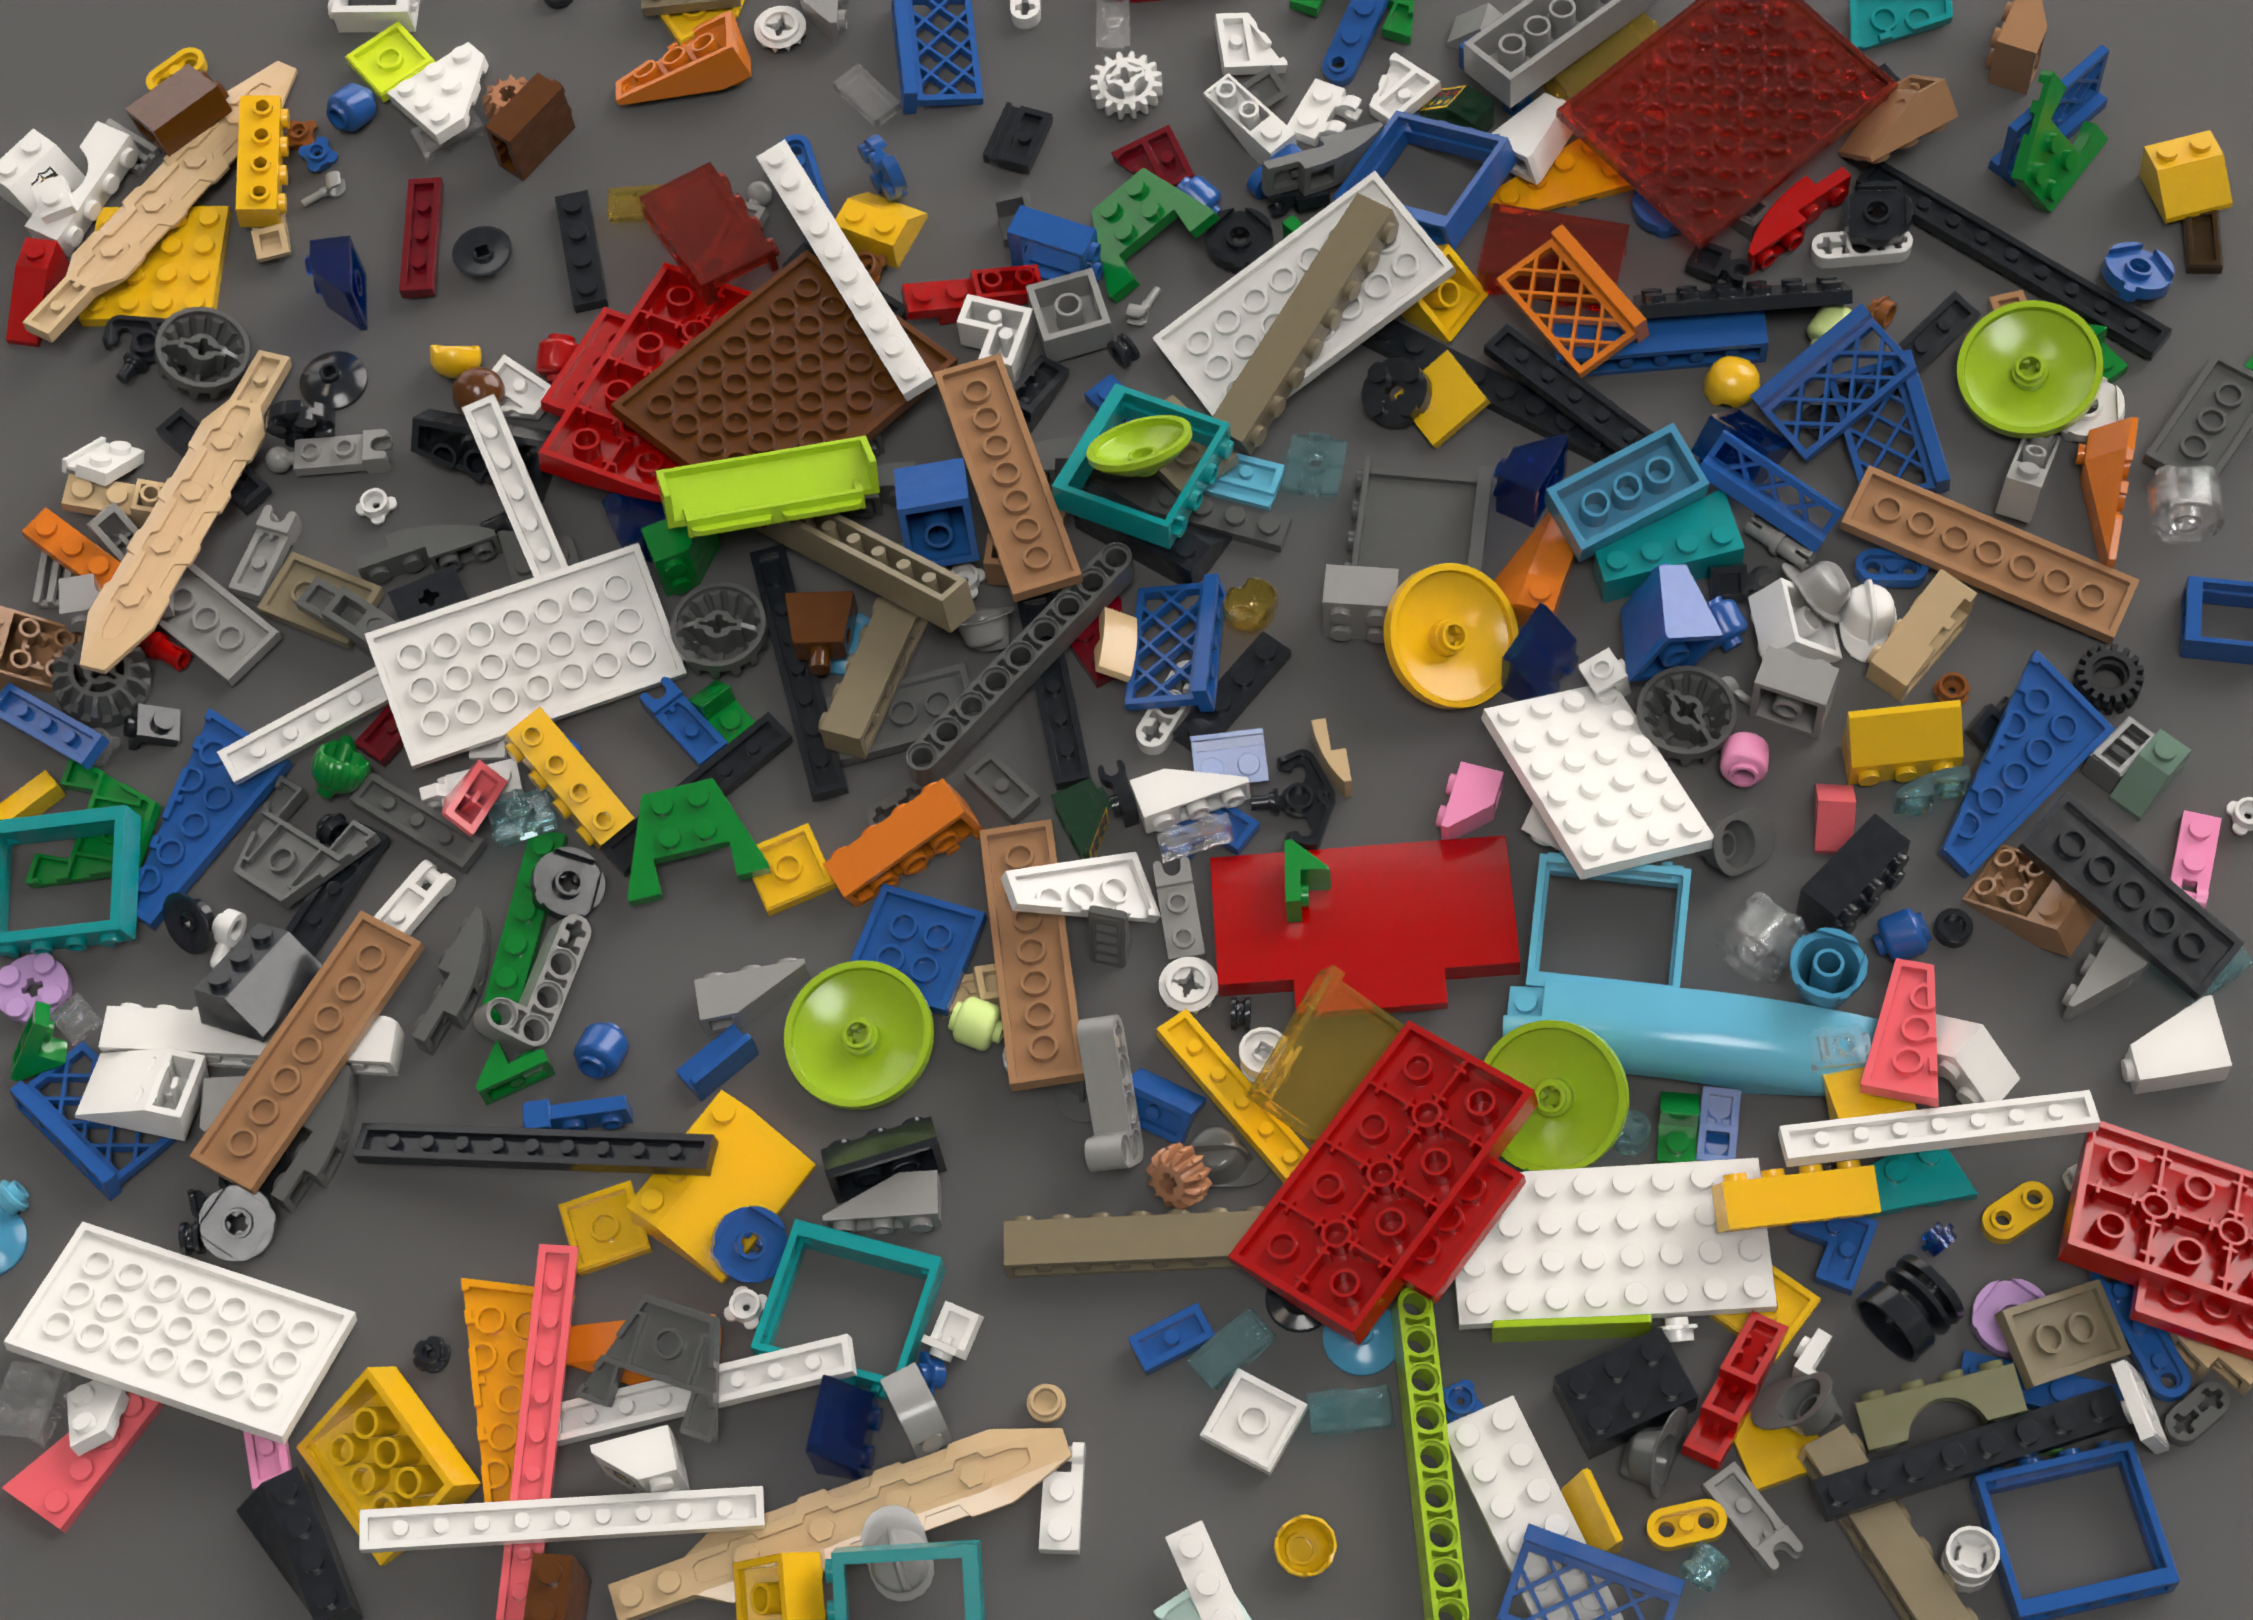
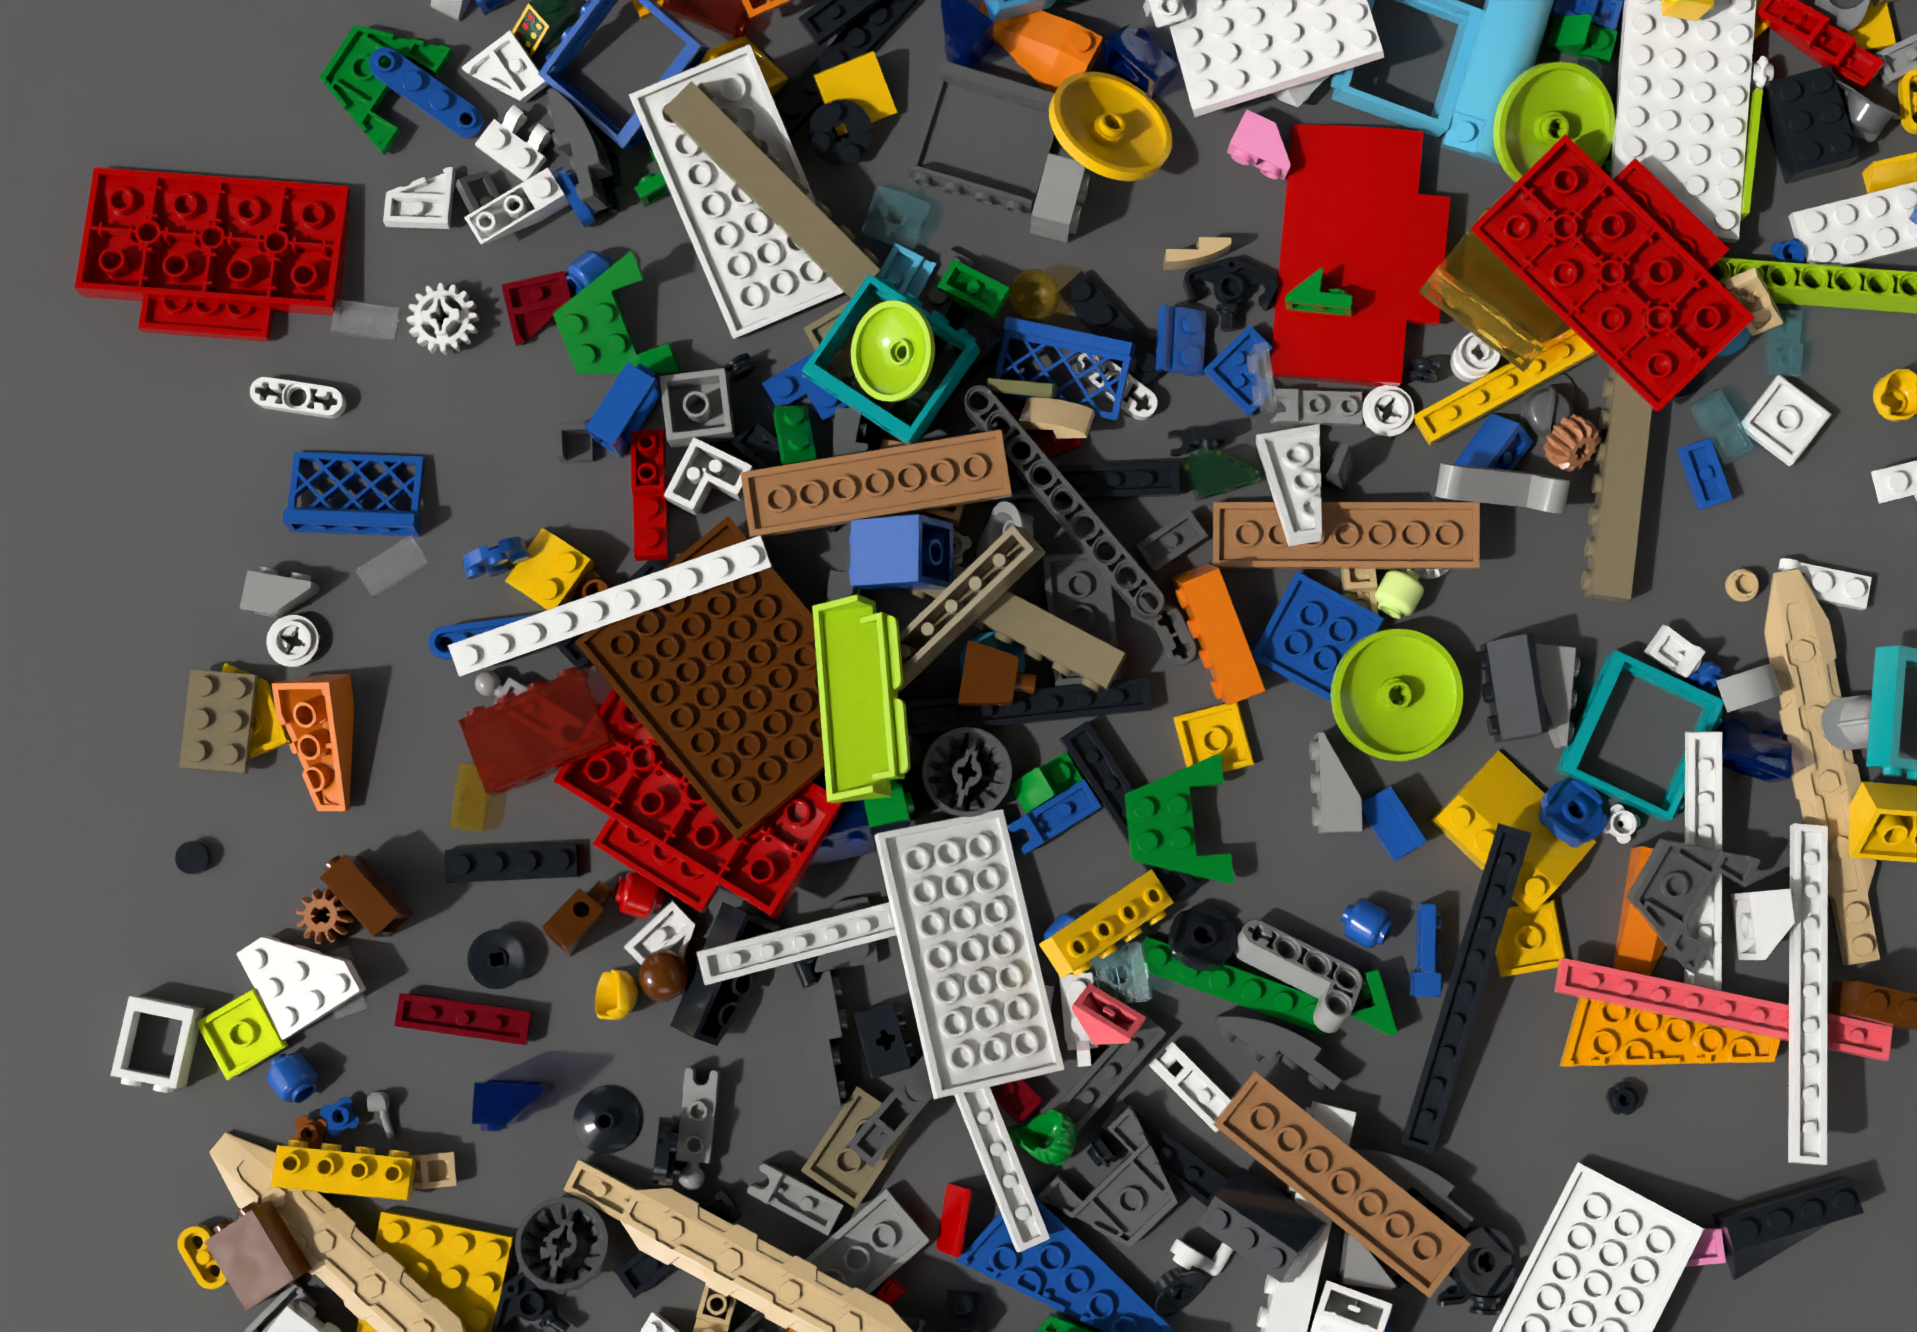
camera: 85 degrees left, 20 degrees up
(252, 707) = (954, 1219): none -> red slope
(372, 498) = (760, 1096): white plate -> none
(385, 1451) = (1717, 1142): yellow slope -> none
(525, 306) = (569, 930): none -> reddish brown torso
(1018, 138) = (478, 429): black plate -> none
(1056, 407) = (794, 434): none -> green plate
(1139, 314) = (700, 349): light grey hand -> none
(1142, 605) = (1022, 388): none -> olive tile
(1181, 795) = (1221, 392): white slope -> none
(1236, 256) = (644, 226): black plate -> none
(1244, 541) = (973, 289): none -> green slope
(1383, 1357) = (1755, 297): none -> tan slope

